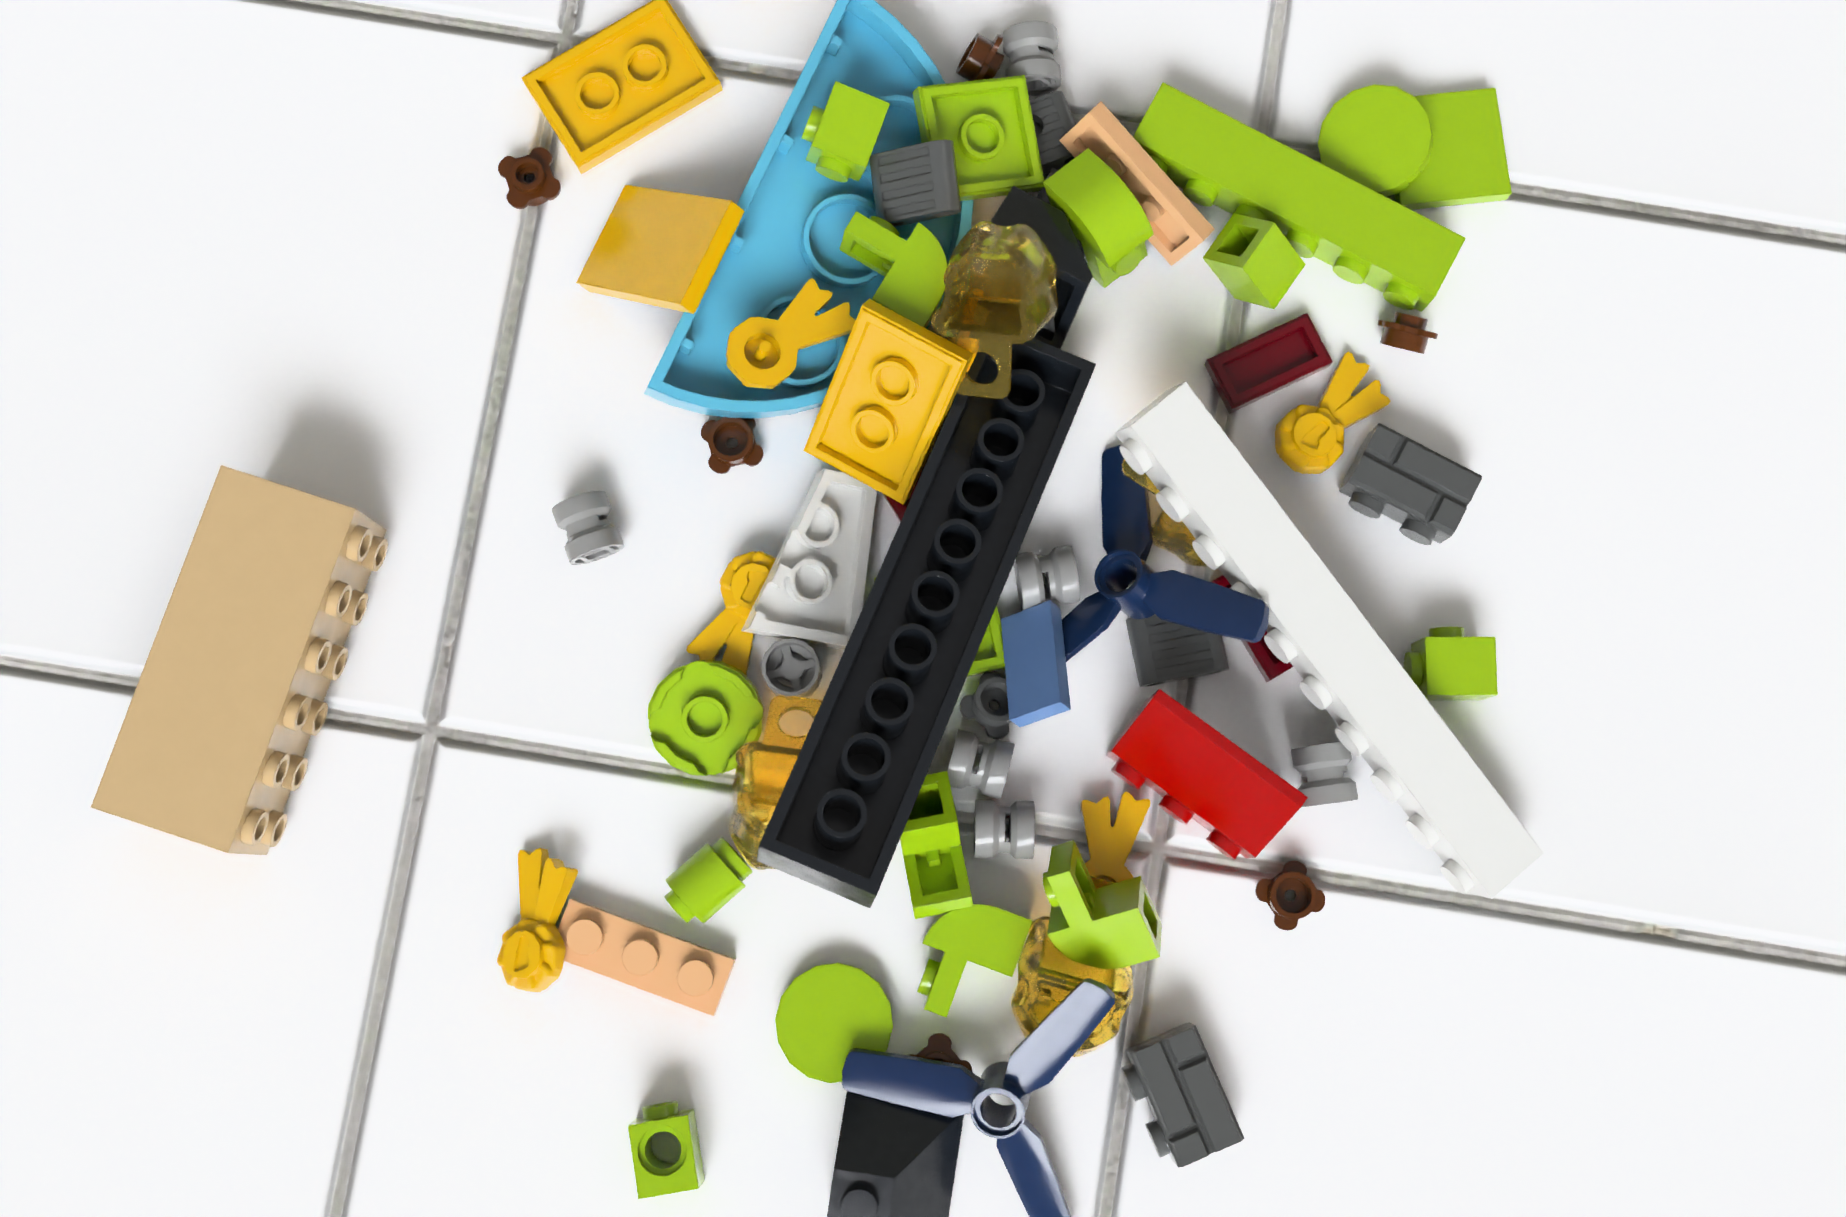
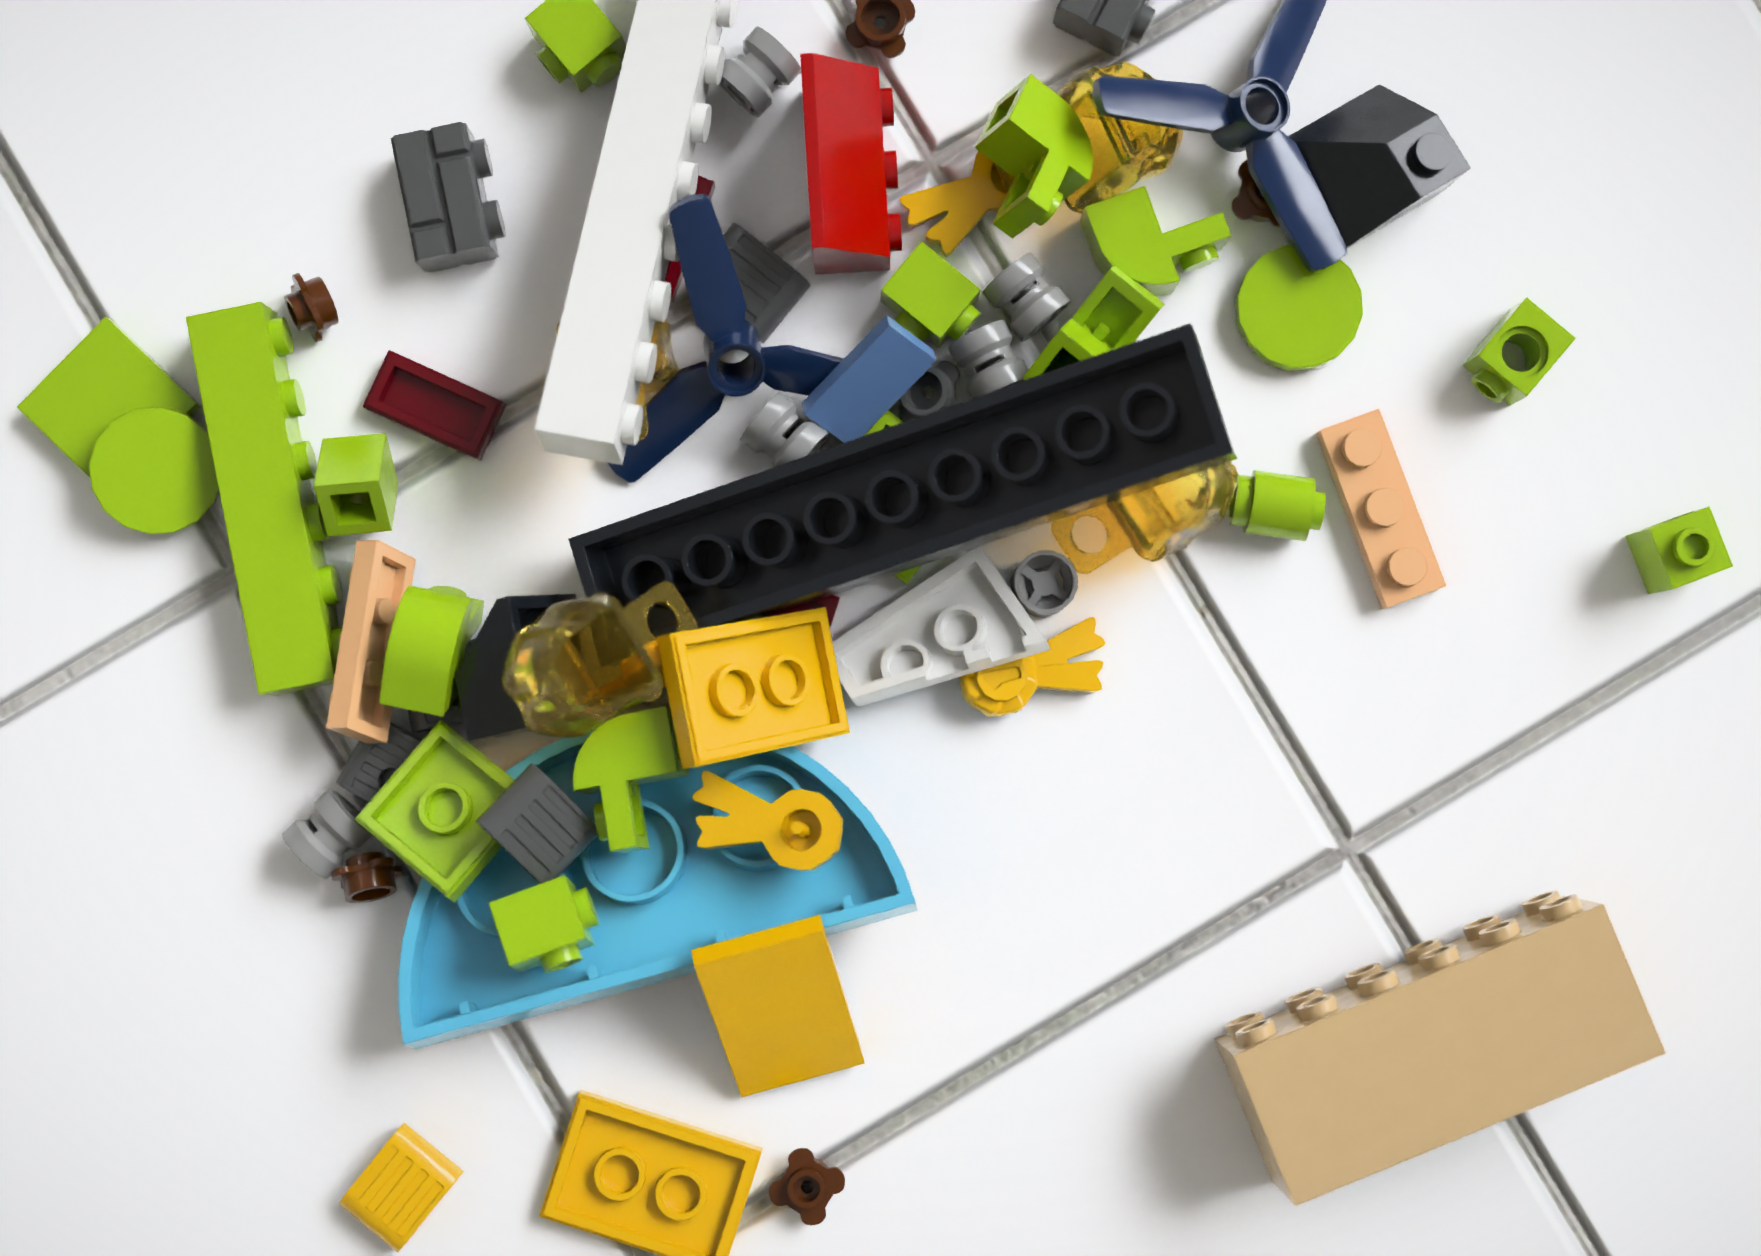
camera: 130 degrees left, 5 degrees up
(426, 1144) = (1679, 550): none -> lime brick
(533, 948) = (1452, 603): yellow piece -> none
(589, 531) = (1070, 861): light grey wheel -> none
(704, 716) = (1143, 624): lime tile -> none
(723, 457) = (909, 799): reddish brown plate -> none
(1058, 759) = (931, 297): none -> lime brick
(1313, 436) = (470, 313): yellow piece -> none

